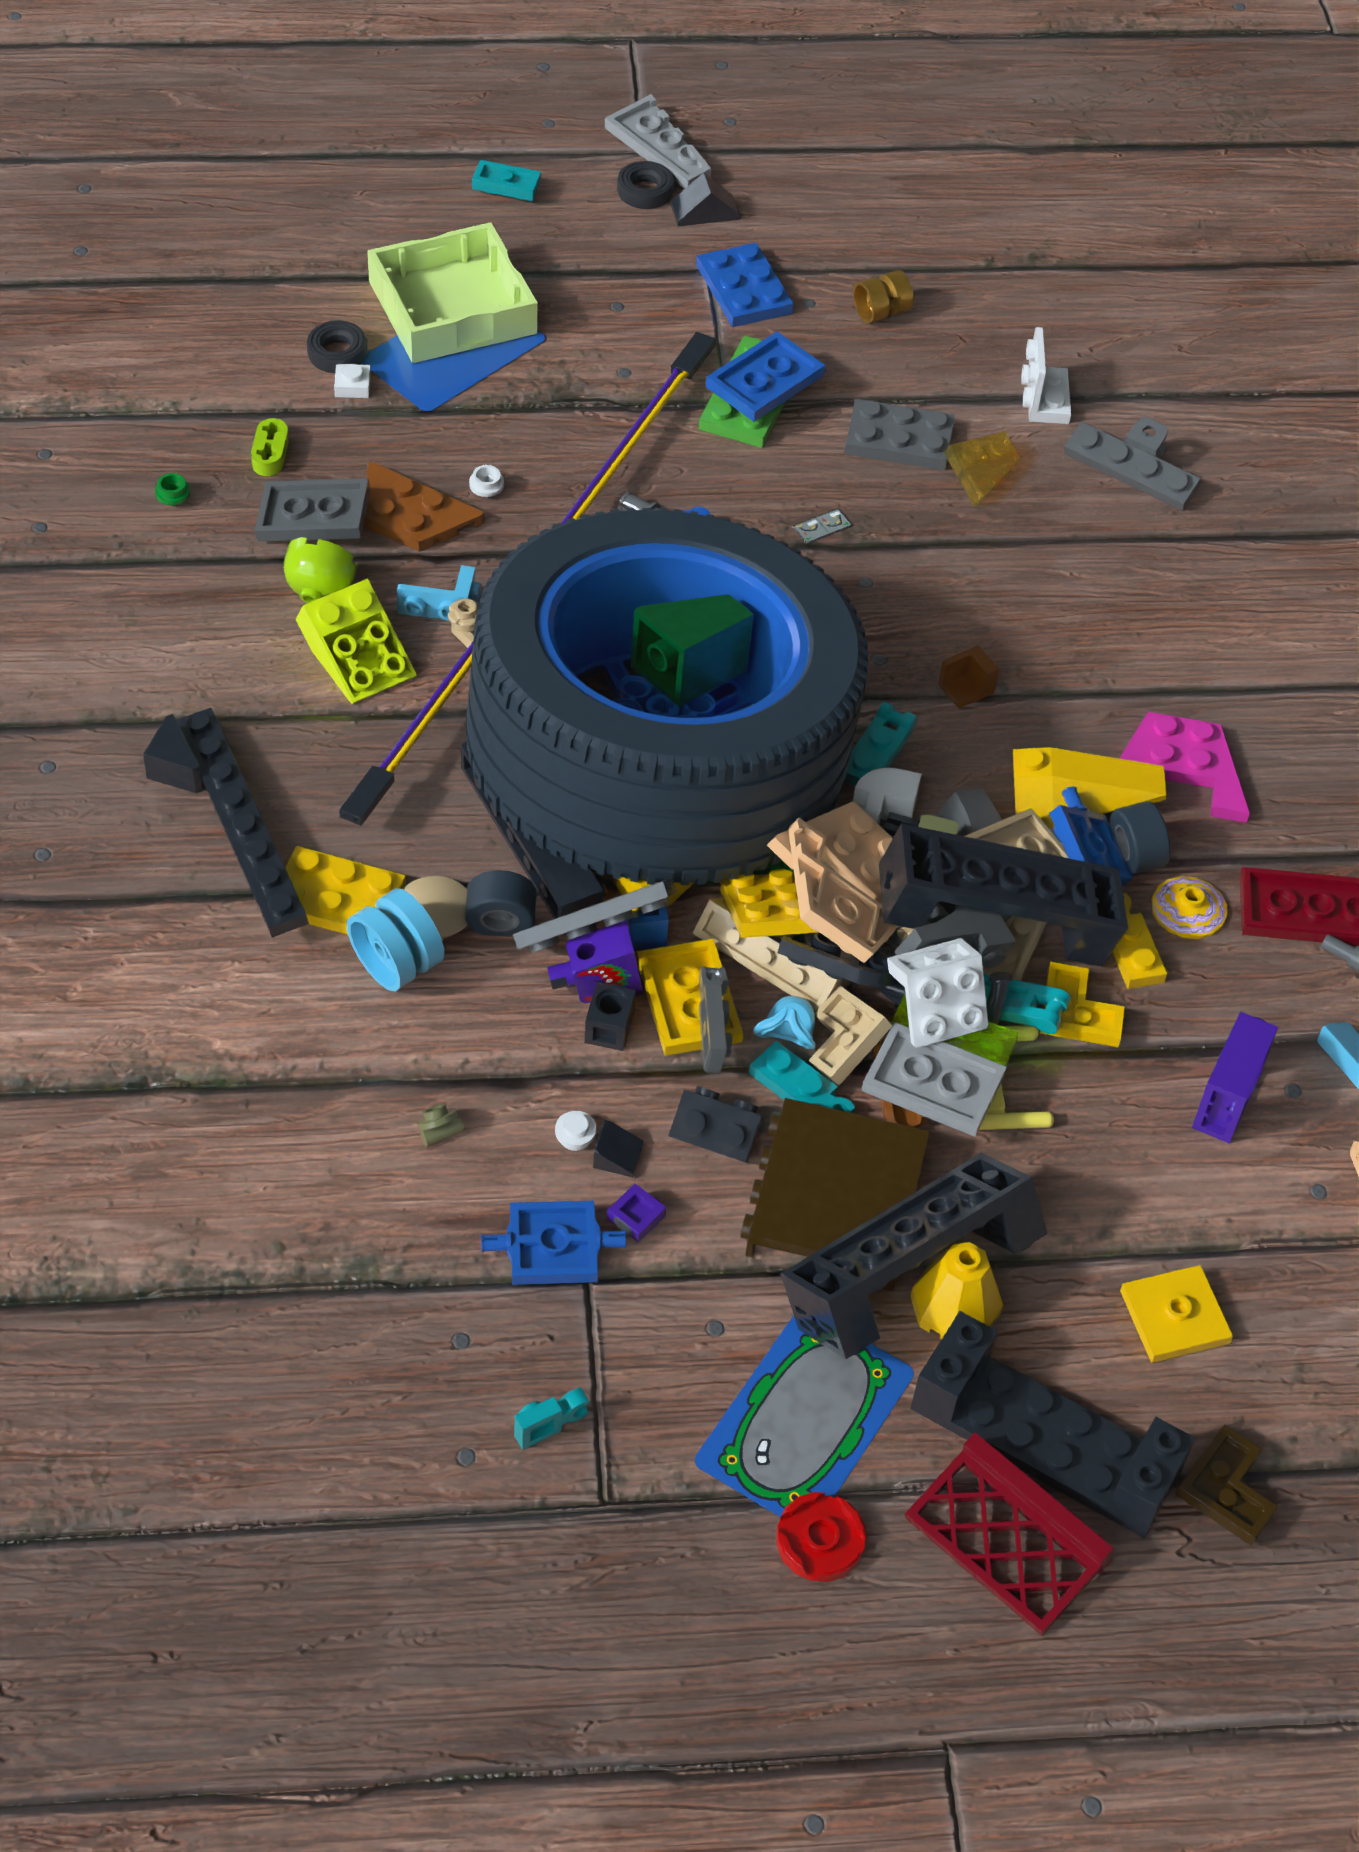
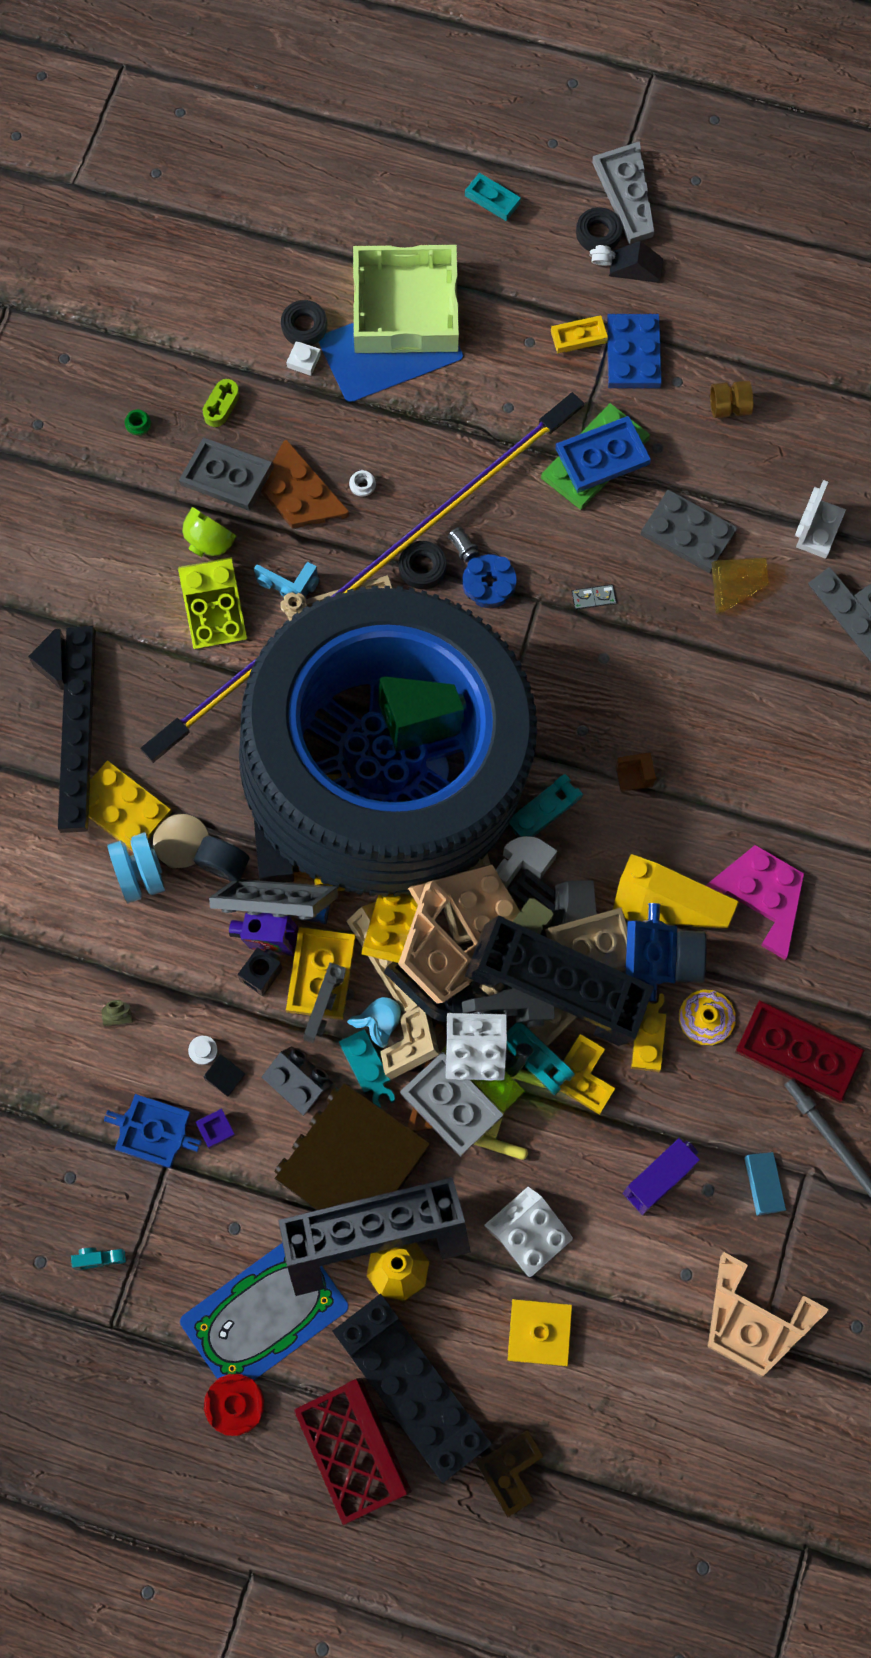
camera: 25 degrees right, 20 degrees up
(662, 204) = (602, 255): none -> white plate
(674, 281) = (579, 334): none -> yellow plate
(1104, 1195) = (529, 1231): none -> white bracket

